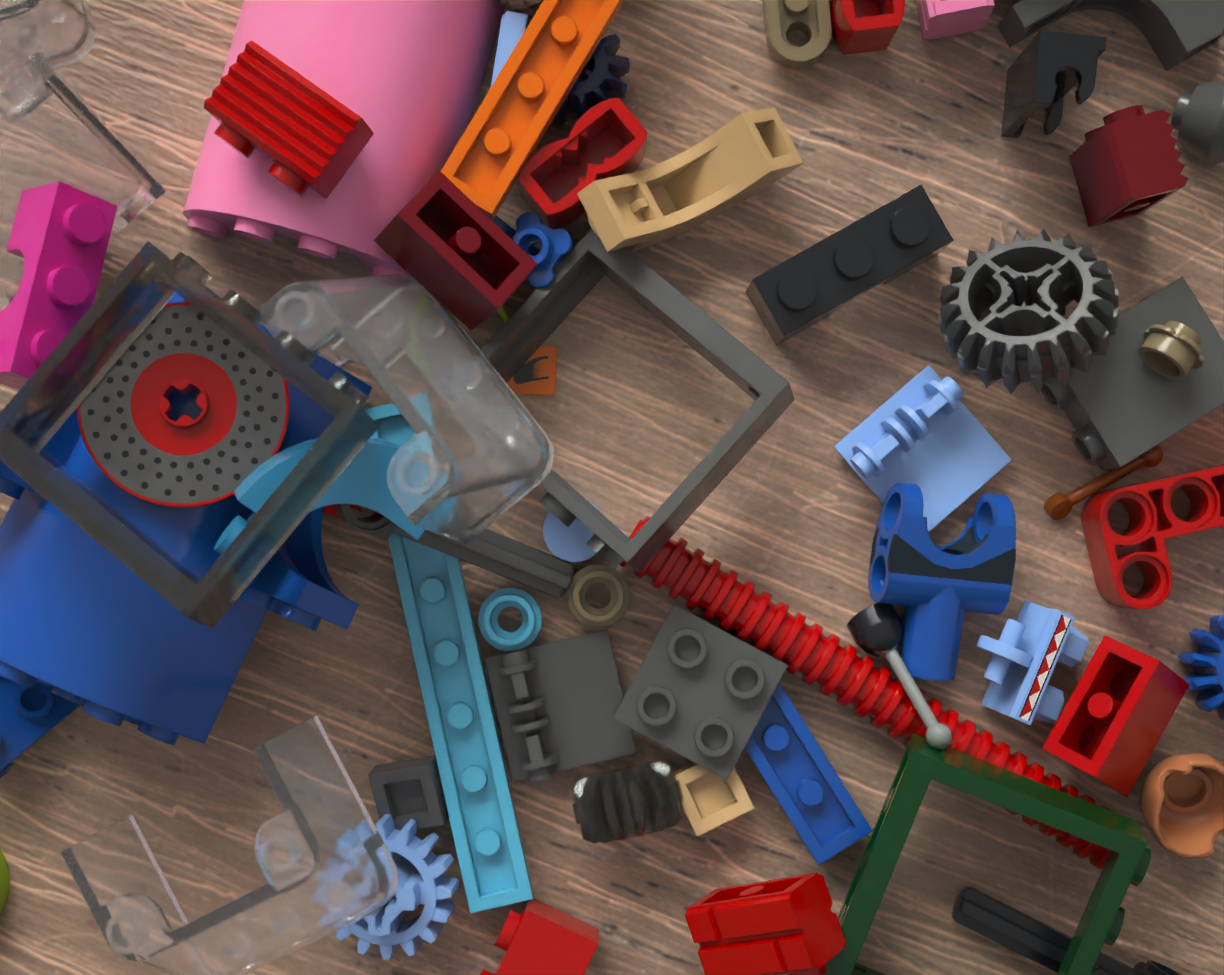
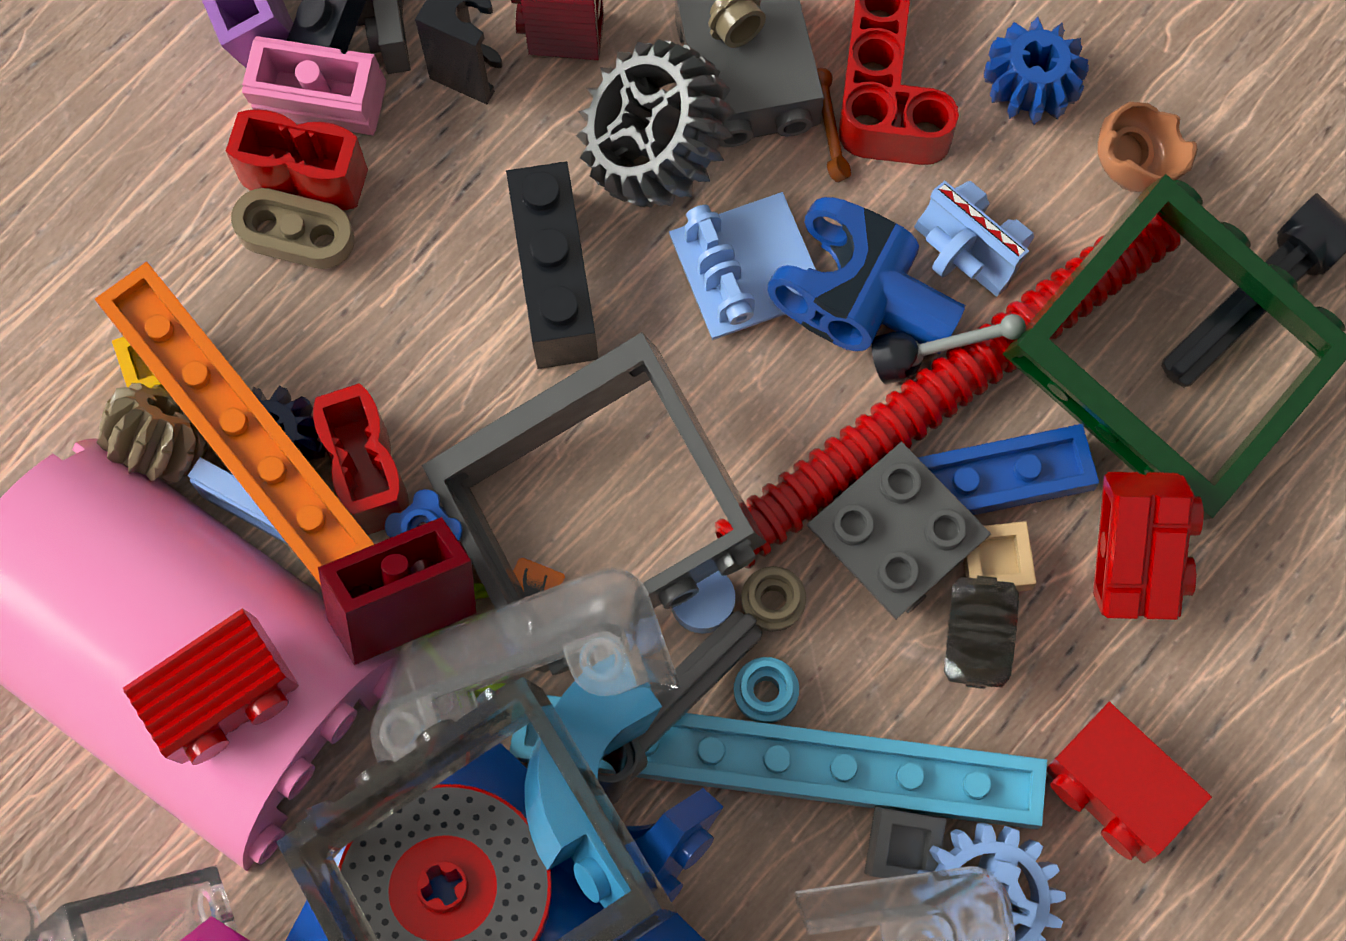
camera: 65 degrees left, 15 degrees down
(559, 706) = (867, 672): dark grey hinge -> none
(692, 186) = (420, 367): tan arch -> none
(1116, 715) = (1045, 179): red brick -> none

